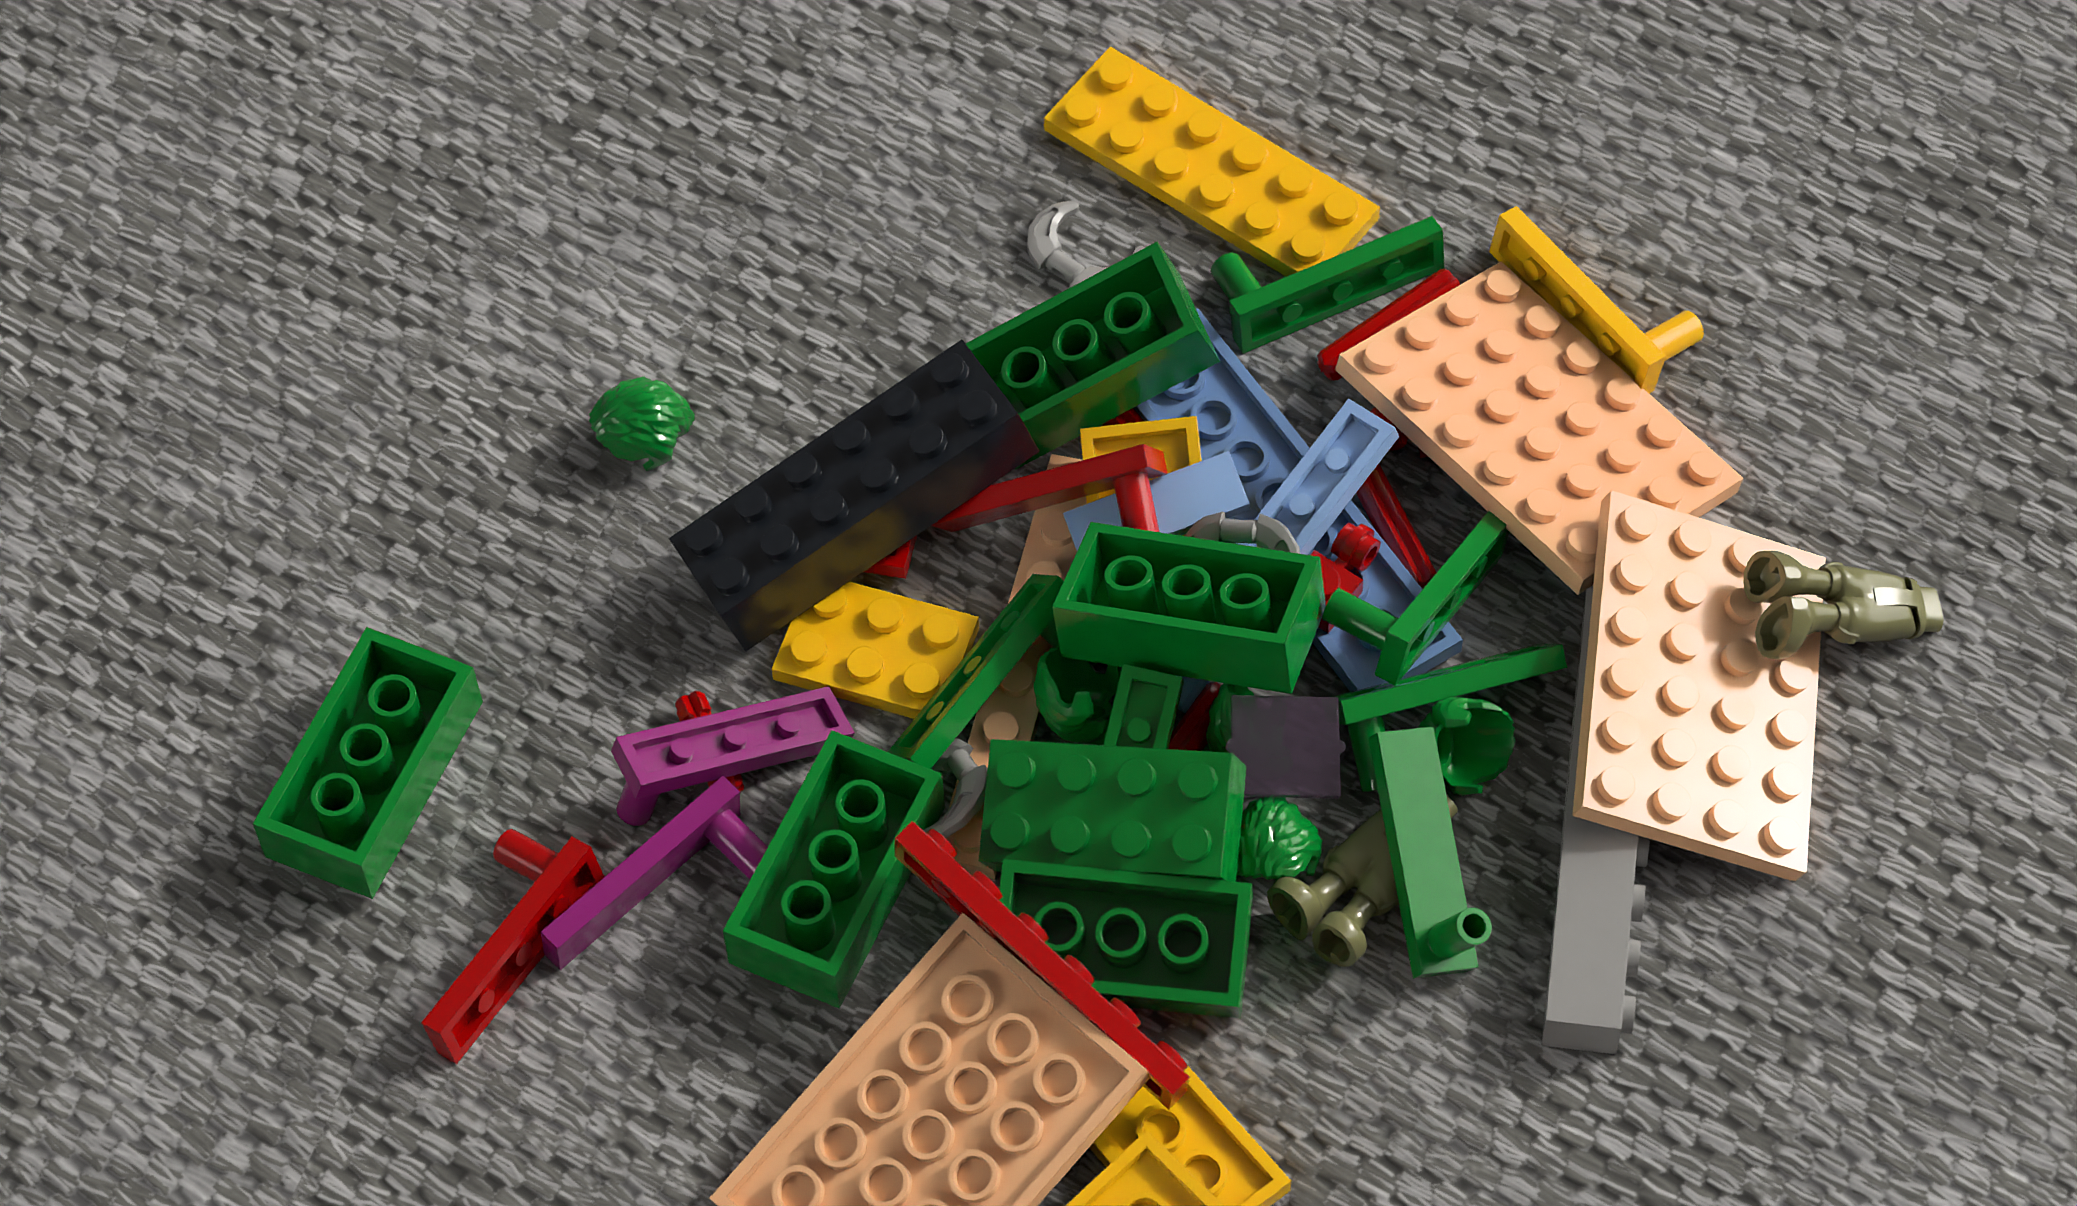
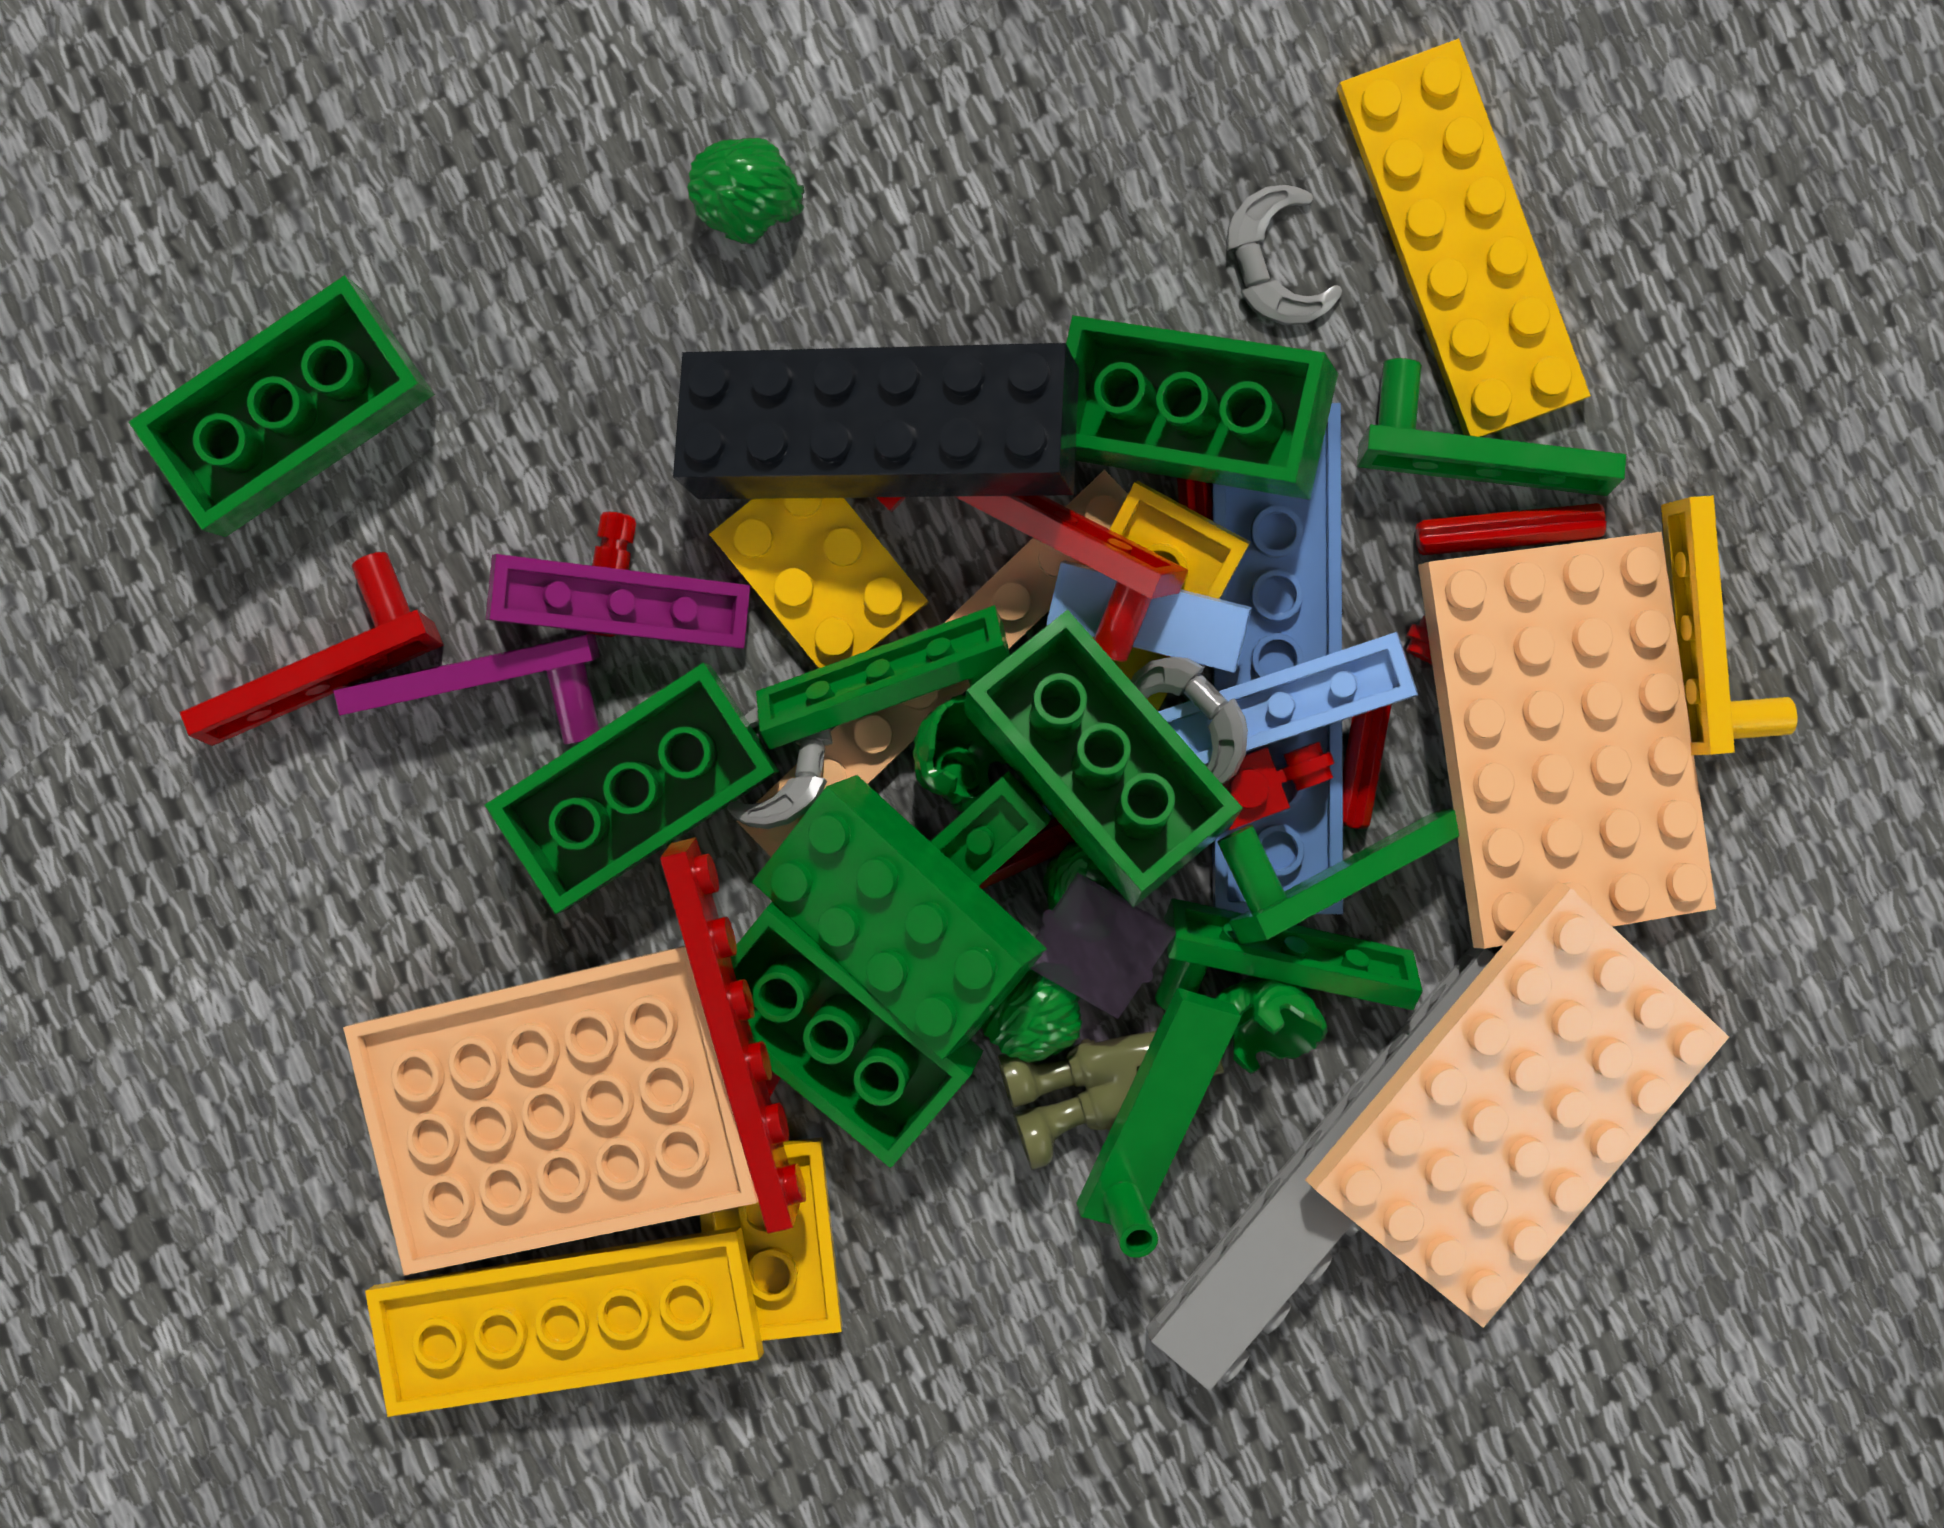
camera: 25 degrees right, 30 degrees up
(1860, 604) = (1723, 1122): olive piece -> none

